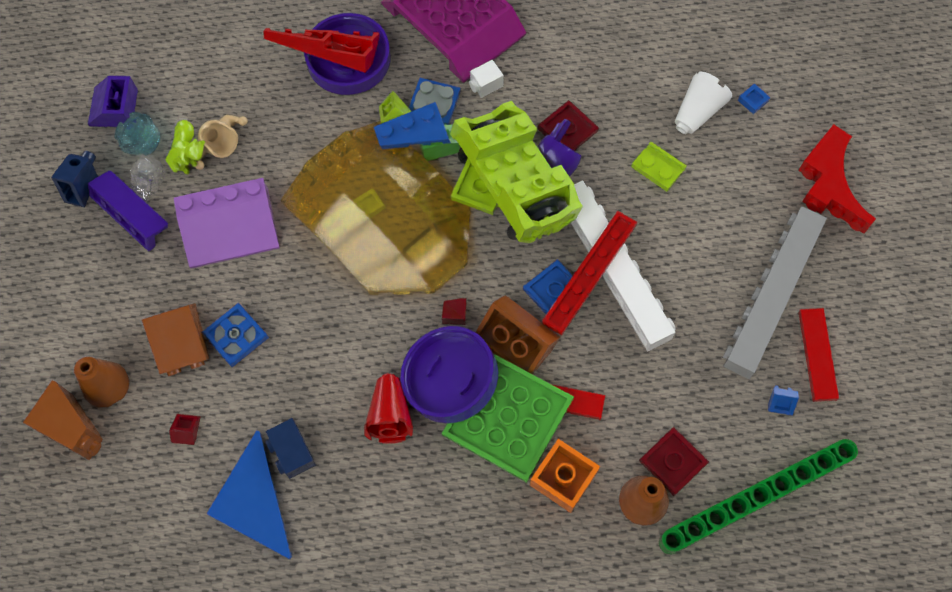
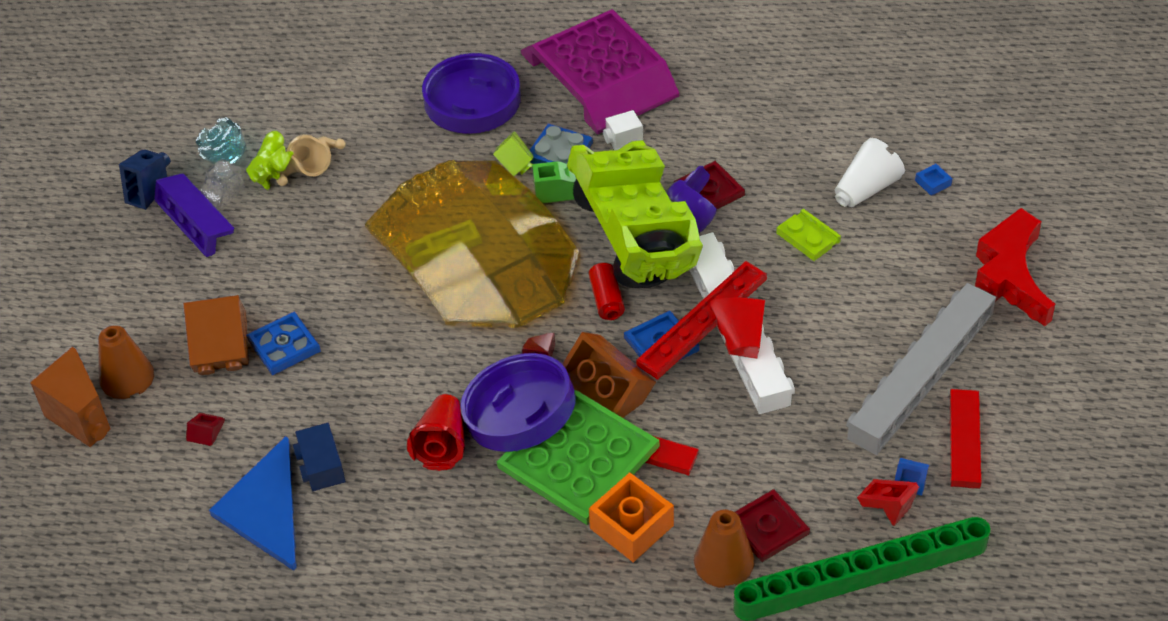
camera: 10 degrees right, 20 degrees down
(112, 101) = (201, 110): dark purple slope -> none
(226, 222) = (299, 235): medium lavender slope -> none
(341, 48) = (468, 84): red wedge -> none
(416, 127) = (534, 158): blue wing -> none
(472, 191) = (584, 229): lime bracket -> none
(501, 248) = (606, 291): none -> red brick
(625, 277) = (740, 323): none -> red slope
(769, 425) = (891, 496): none -> red slope

